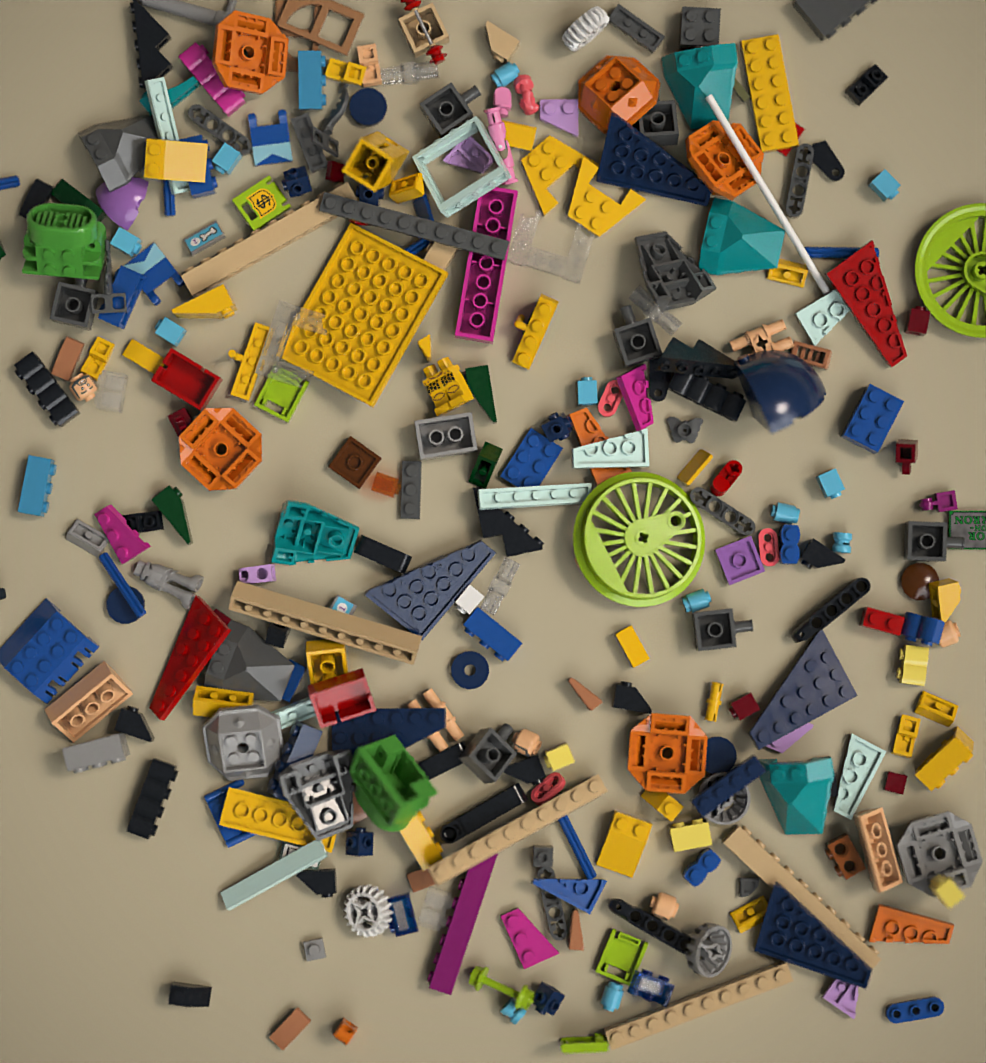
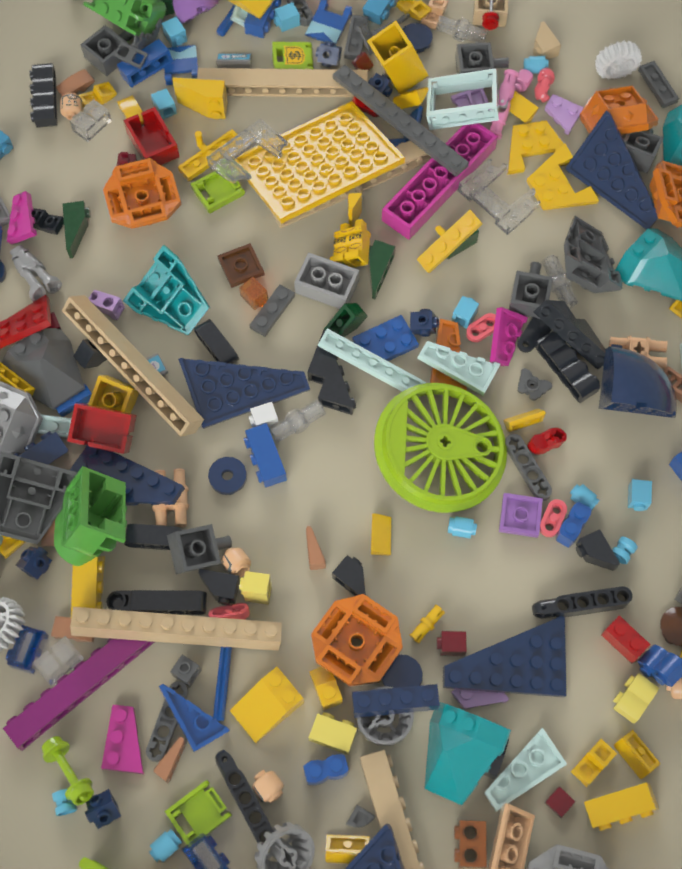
camera: 30 degrees right, 20 degrees down
(717, 629) = (466, 559): dark grey brick -> none

